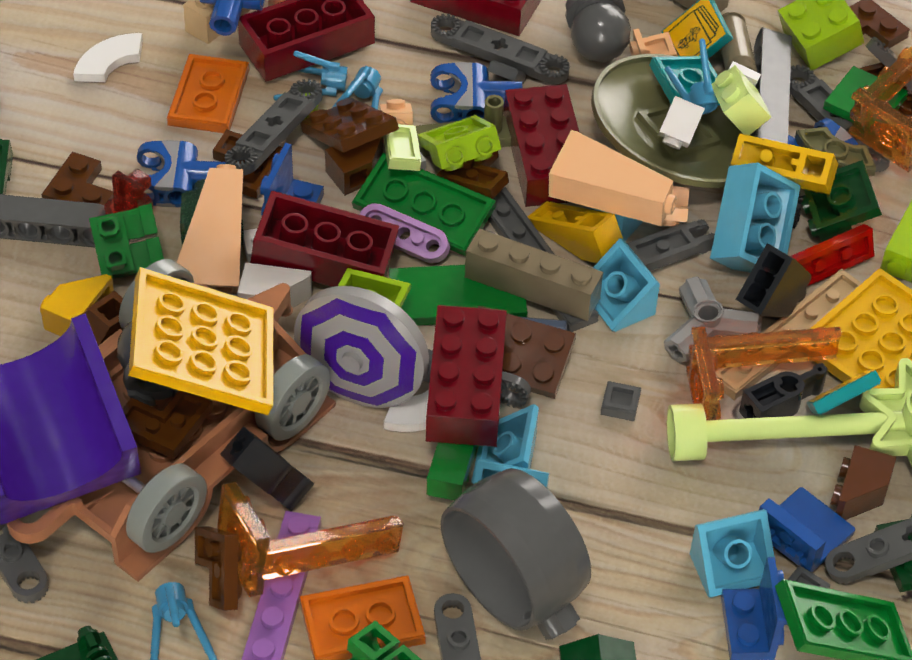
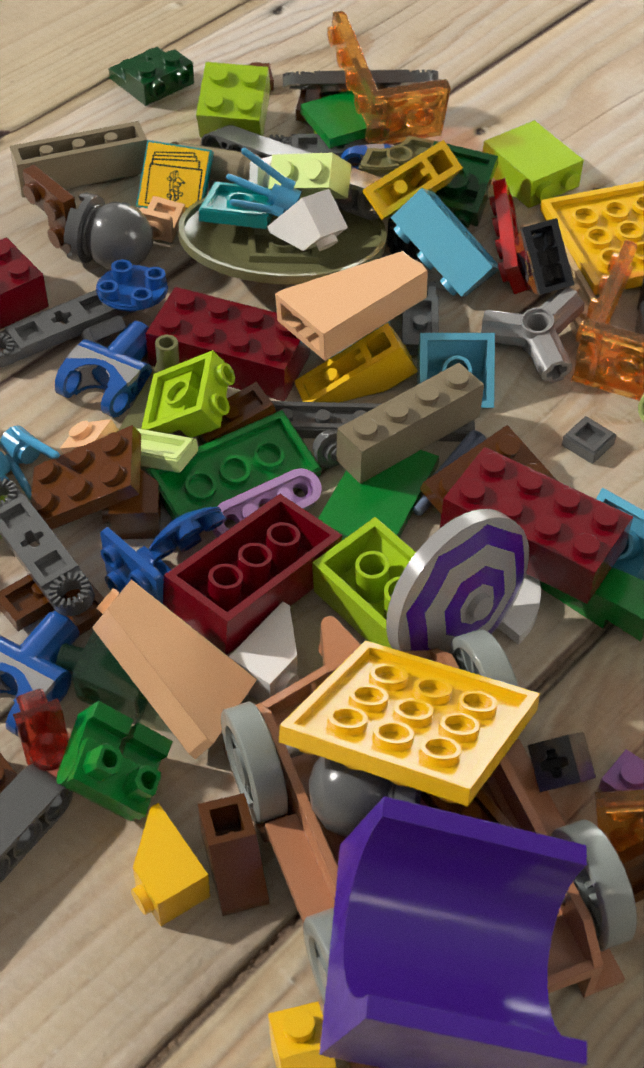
camera: 60 degrees left, 0 degrees up
(338, 193) = (185, 531): none -> blue dish
(553, 62) = (132, 286): none -> blue dish

